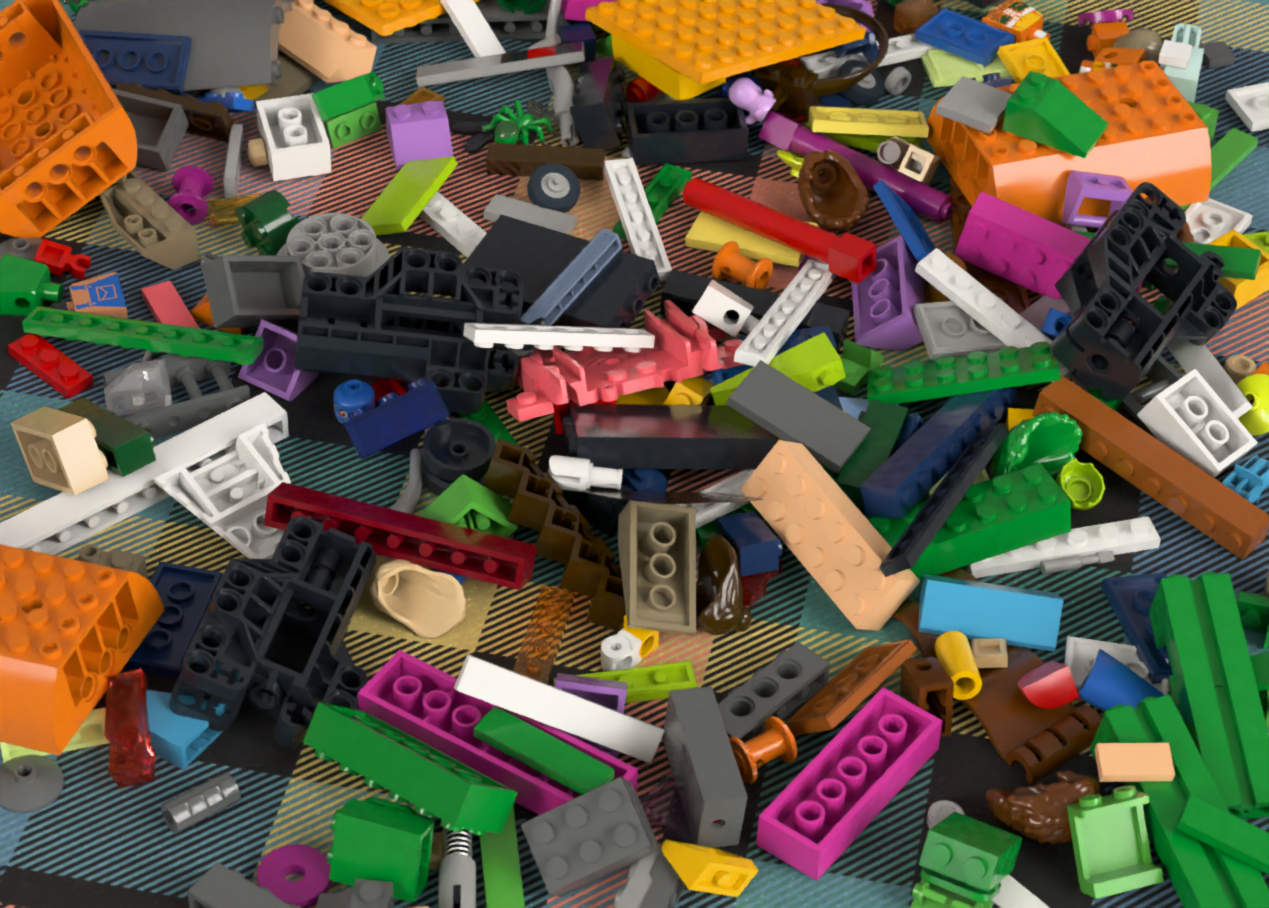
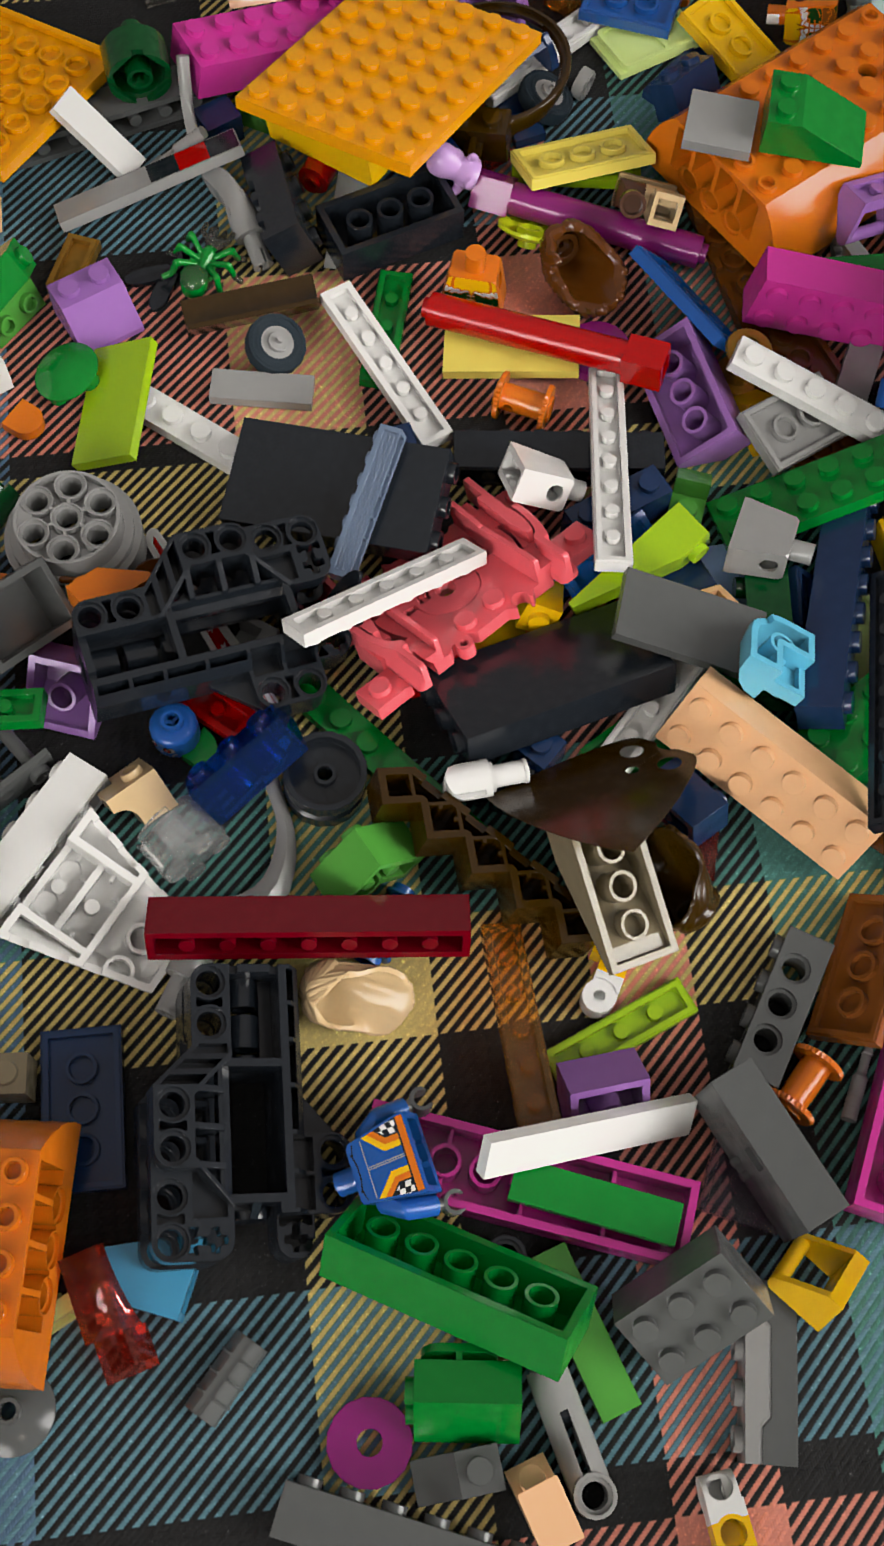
camera: 20 degrees left, 25 degrees up
(307, 431) = (137, 790): none -> tan brick
(327, 462) = (181, 840): none -> clear brick
(329, 195) = (24, 421): none -> orange tile
(377, 170) = (67, 372): none -> green dish
(393, 679) = (394, 1163): none -> blue torso
(740, 175) = (476, 276): none -> orange torso
(854, 445) = (775, 658): none -> medium azure brick
(890, 384) = (765, 542): none -> light grey torso

